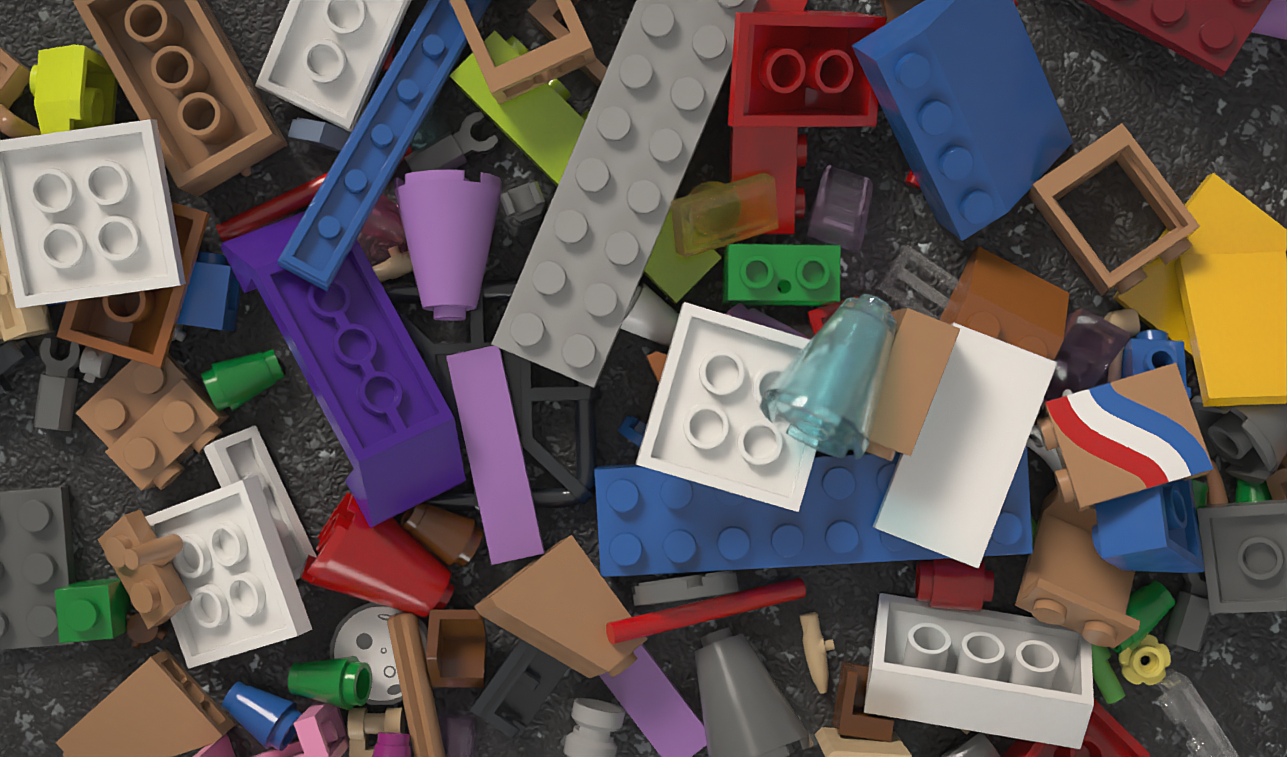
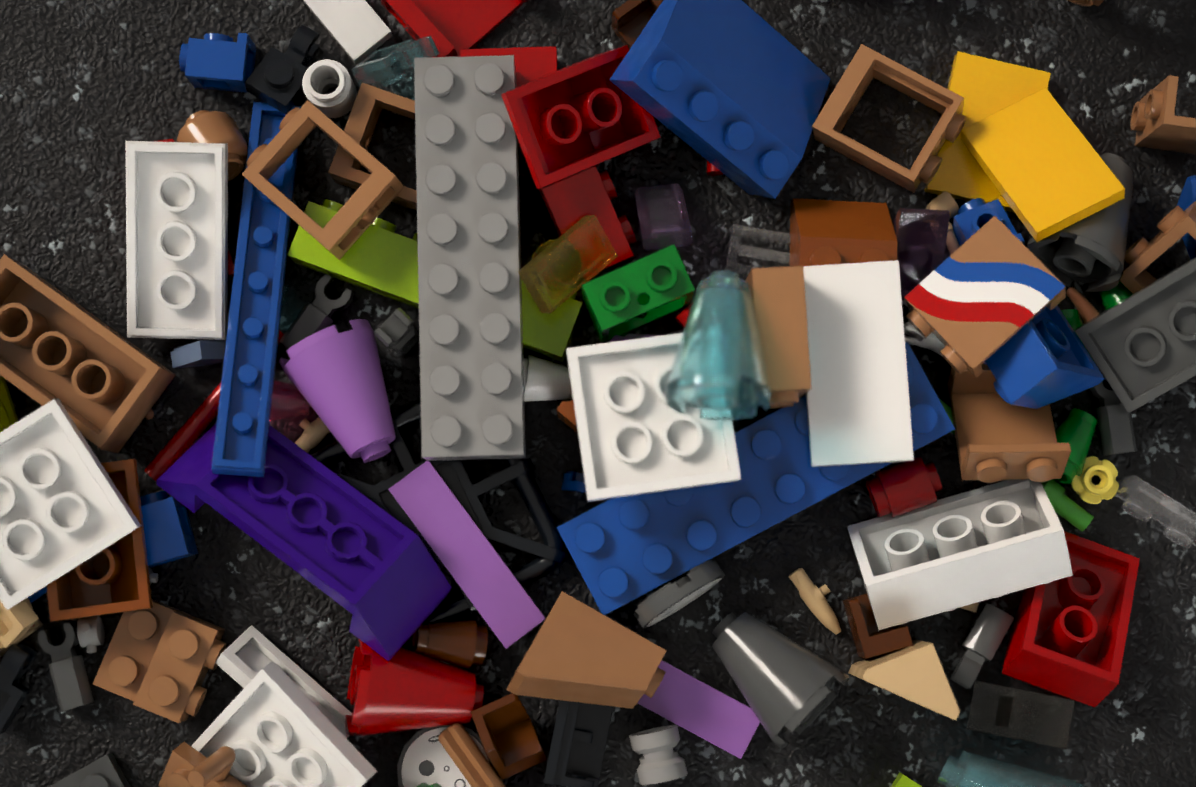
camera: 25 degrees left, 5 degrees down
(241, 379) = (222, 590): green cone -> none
(705, 610) = (704, 605): red bar -> none

